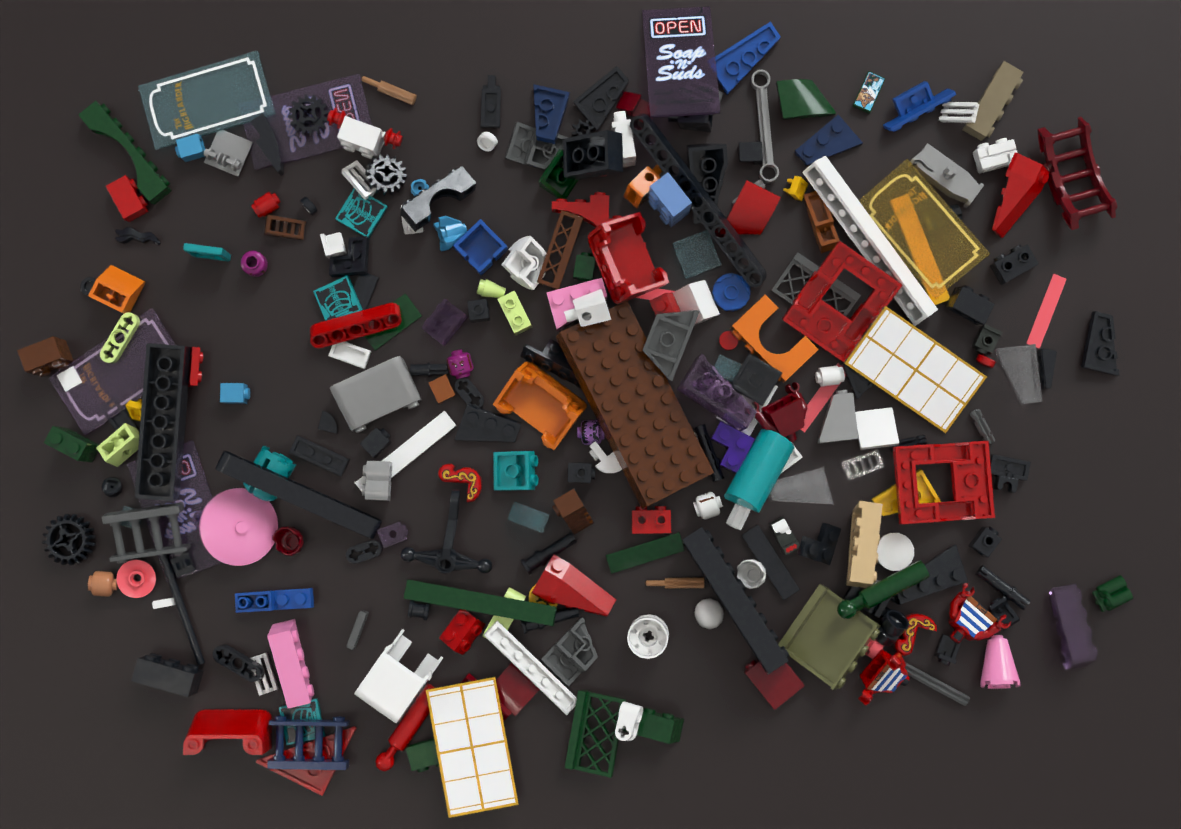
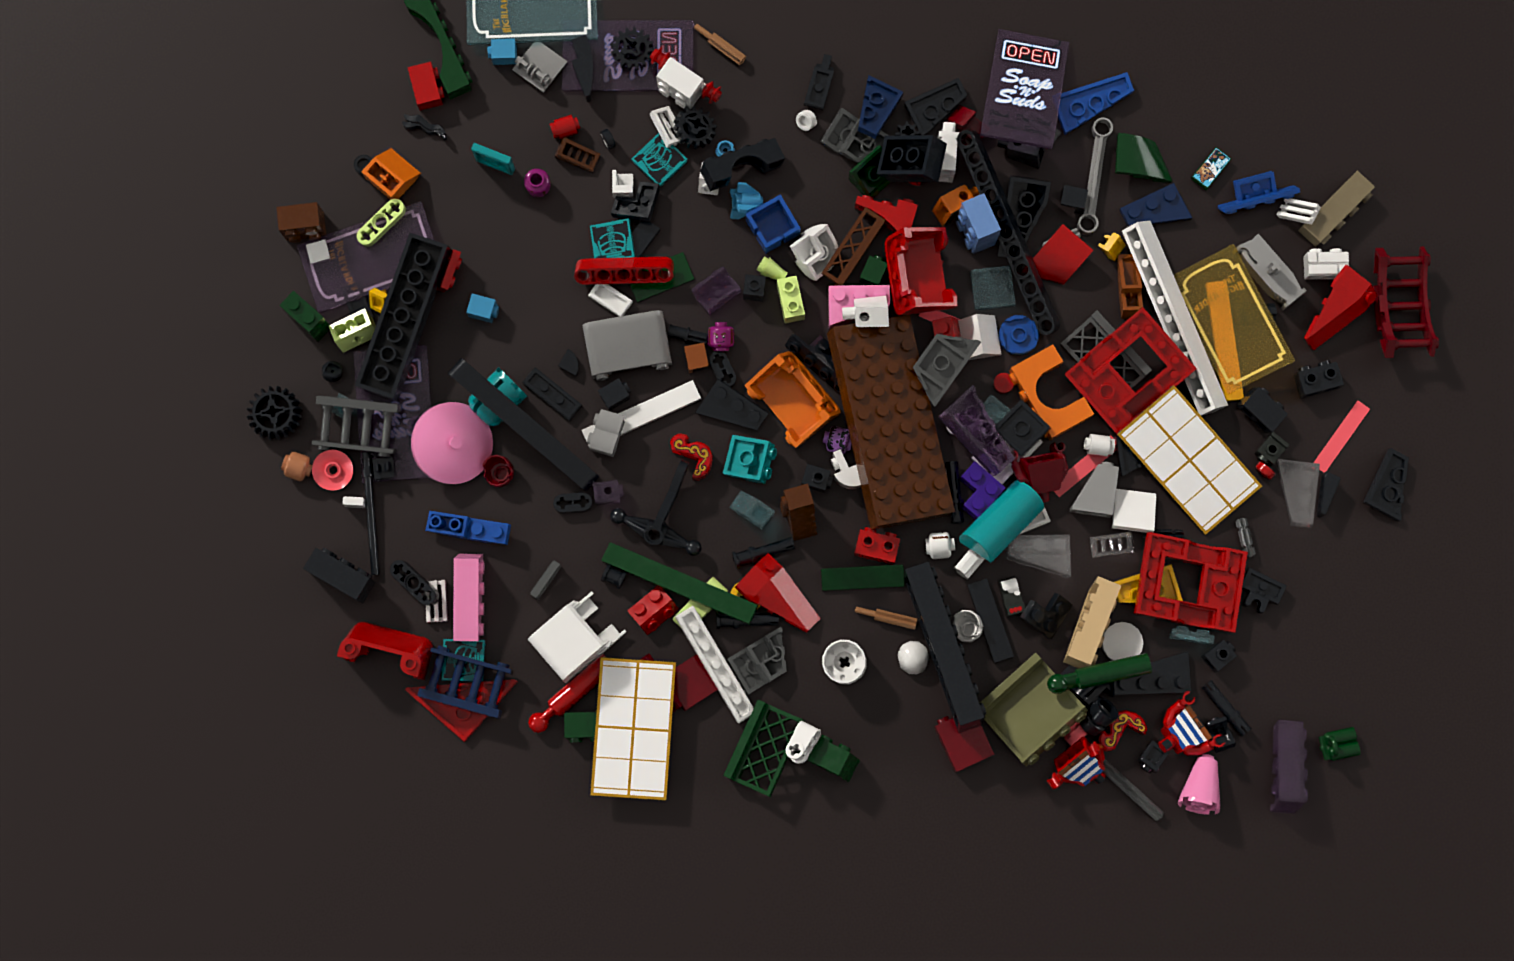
camera: 10 degrees right, 5 degrees down
(964, 528) = (1183, 633): none -> clear light blue plate

